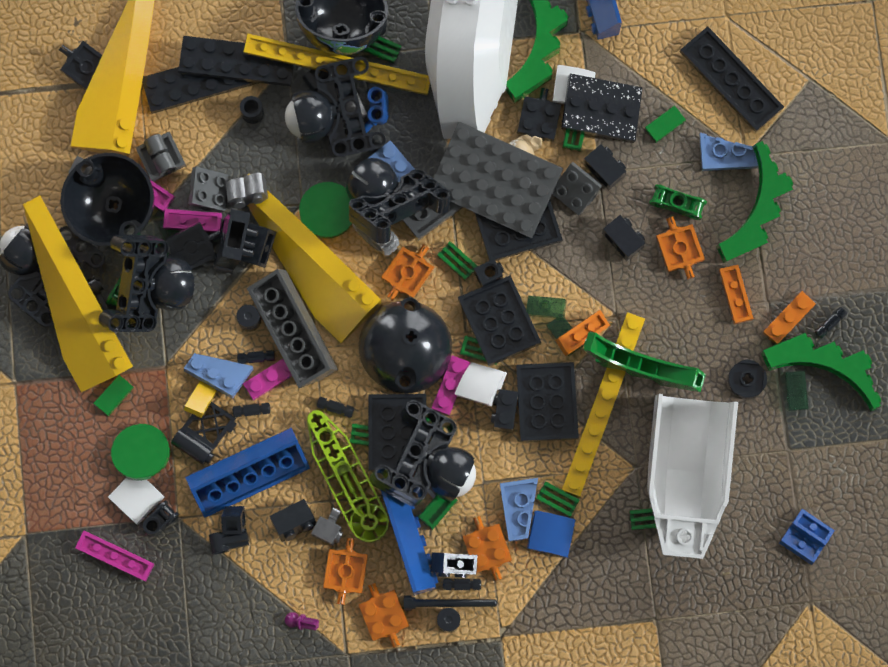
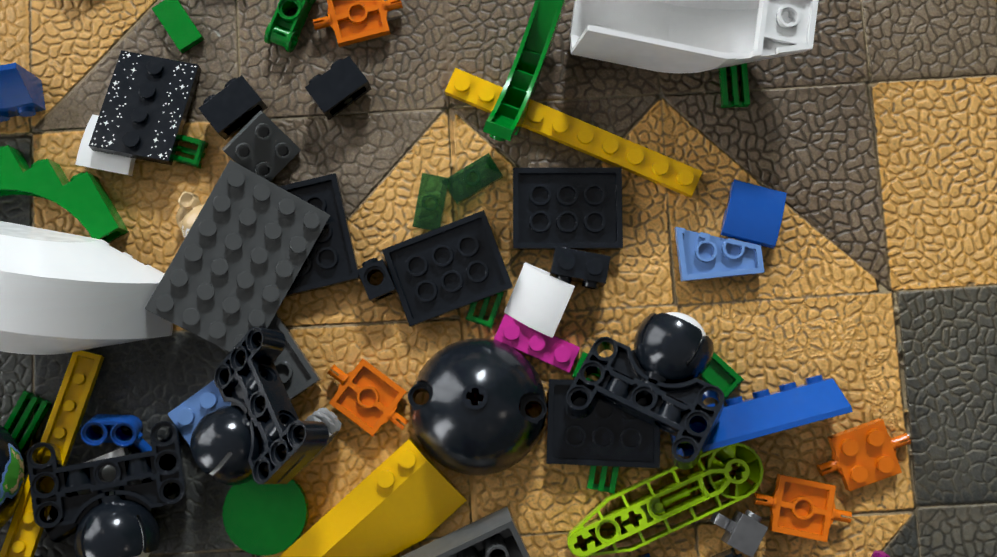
camera: 85 degrees left, 5 degrees up
(335, 407) = (561, 512): black axle -> none
(411, 602) = (851, 418): black piece -> none
(446, 250) = (349, 315): green tile -> none
(448, 620) = (876, 362): black piece -> none
(456, 564) = (801, 351): black brick -> none
(461, 584) = (821, 341): black axle -> none
(489, 546) = (771, 303): orange plate -> none
(539, 117) = (151, 196): black plate -> none
(562, 493) = (715, 183): green tile -> none
(576, 336) = (473, 152): orange plate -> none

